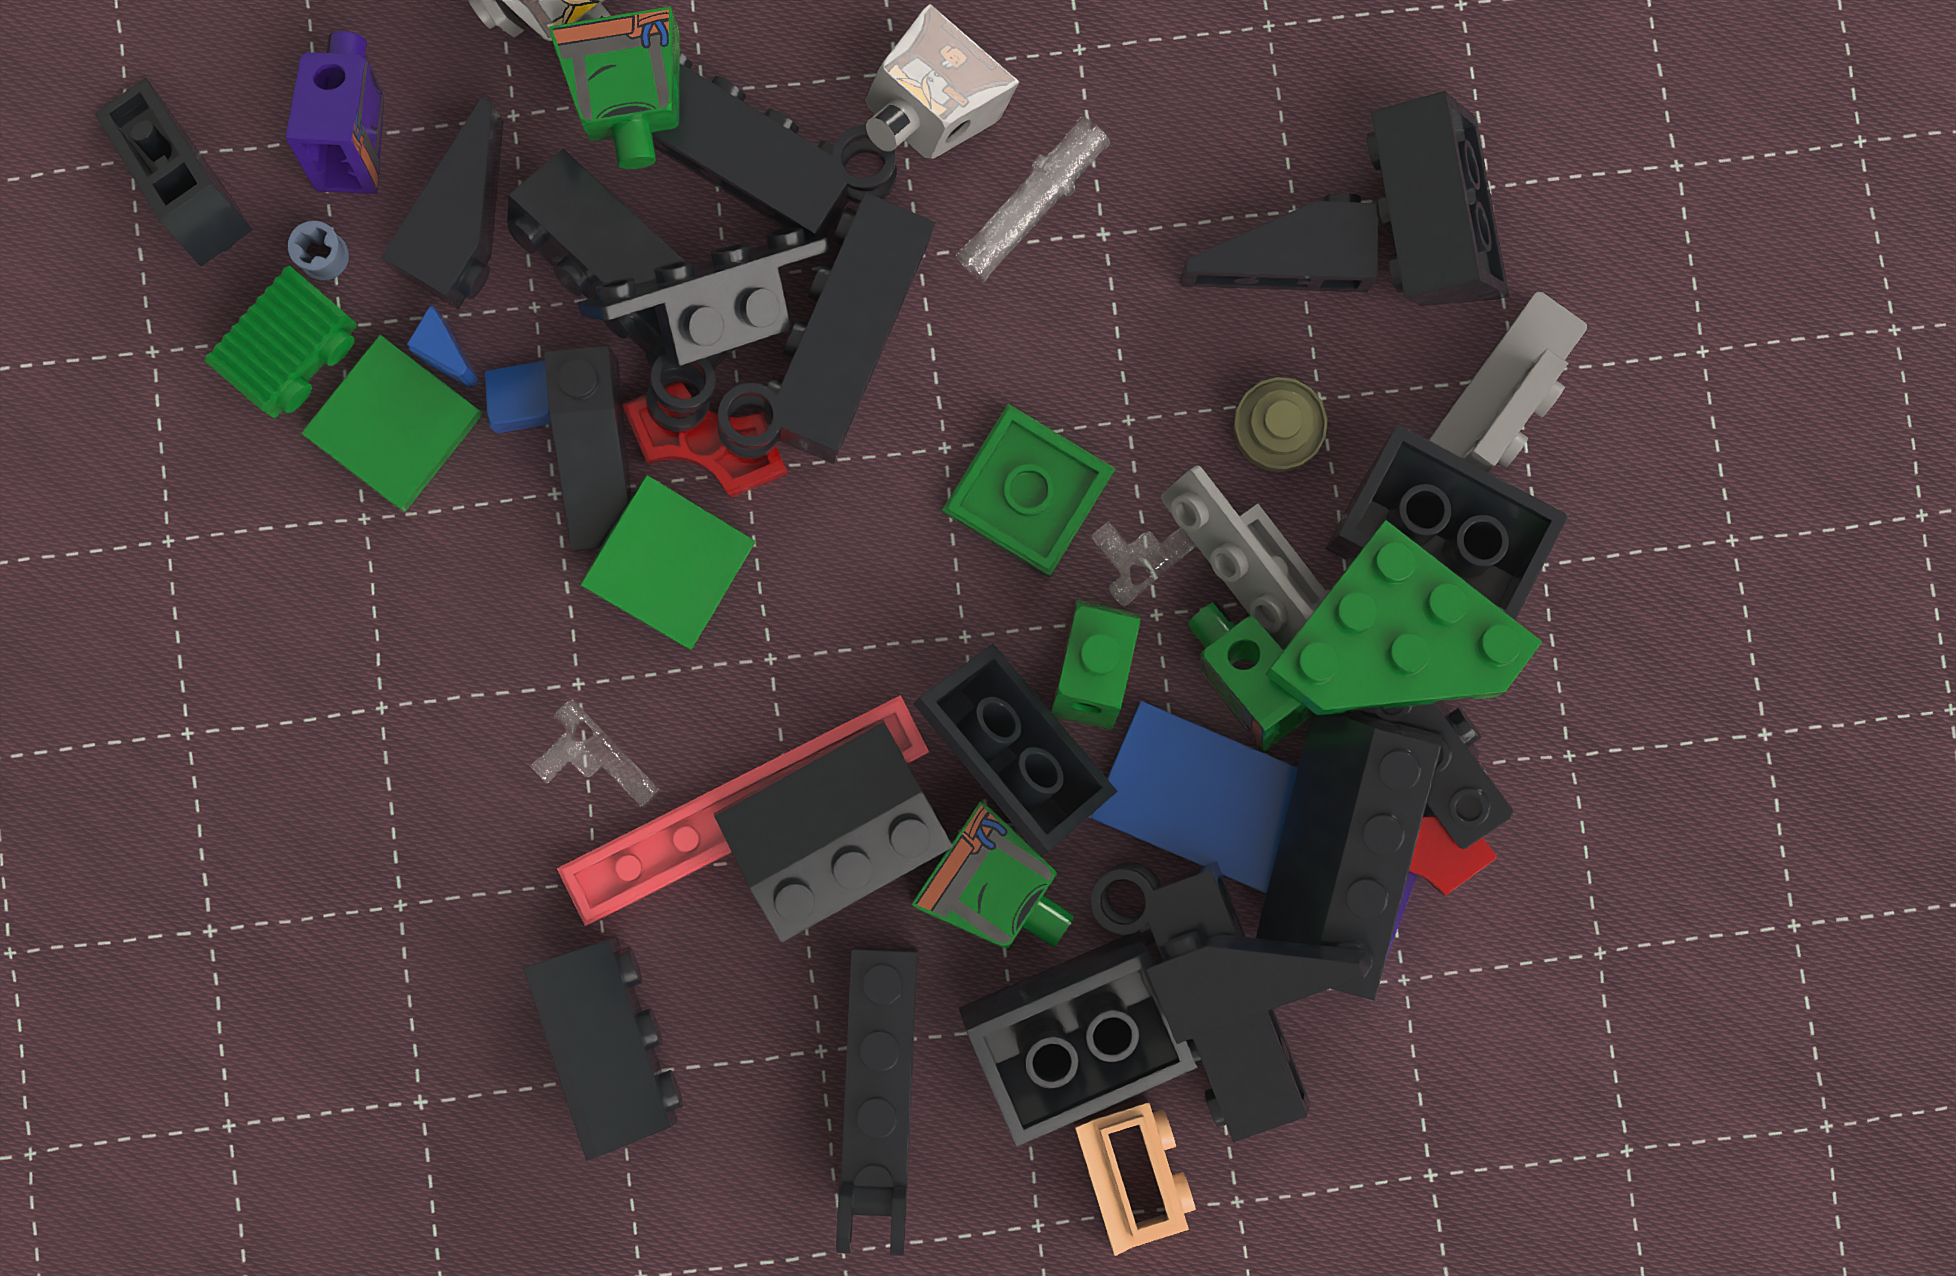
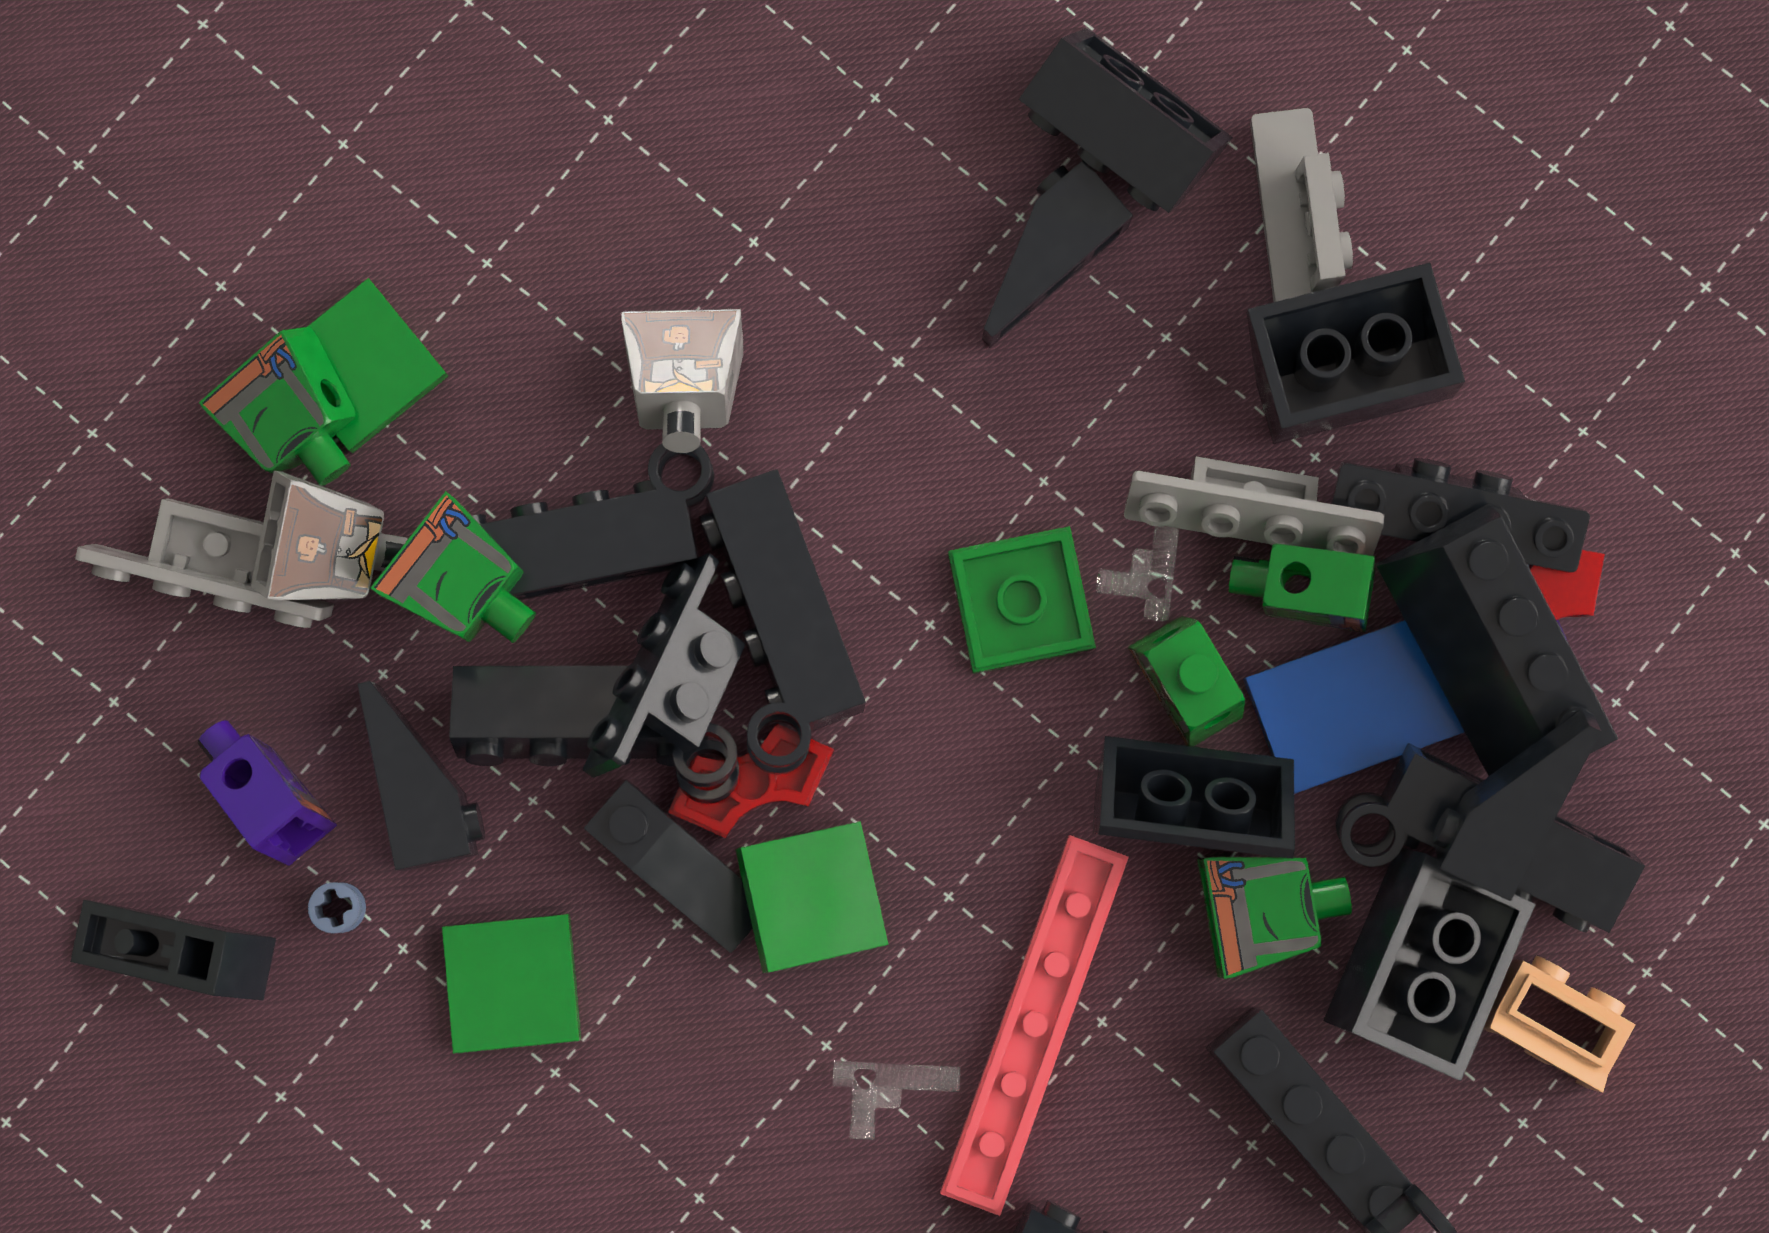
camera: 40 degrees left, 0 degrees up
(283, 344) = (378, 1000): green brick -> none
(438, 347) = (498, 896): blue slope -> none
(517, 397) = (586, 876): blue slope -> none
(832, 831) = (1117, 979): black slope -> none
(1049, 181) = (826, 383): clear pin -> none
(1280, 424) = (1158, 384): olive plate -> none
(1401, 636) = (1395, 461): green plate -> none

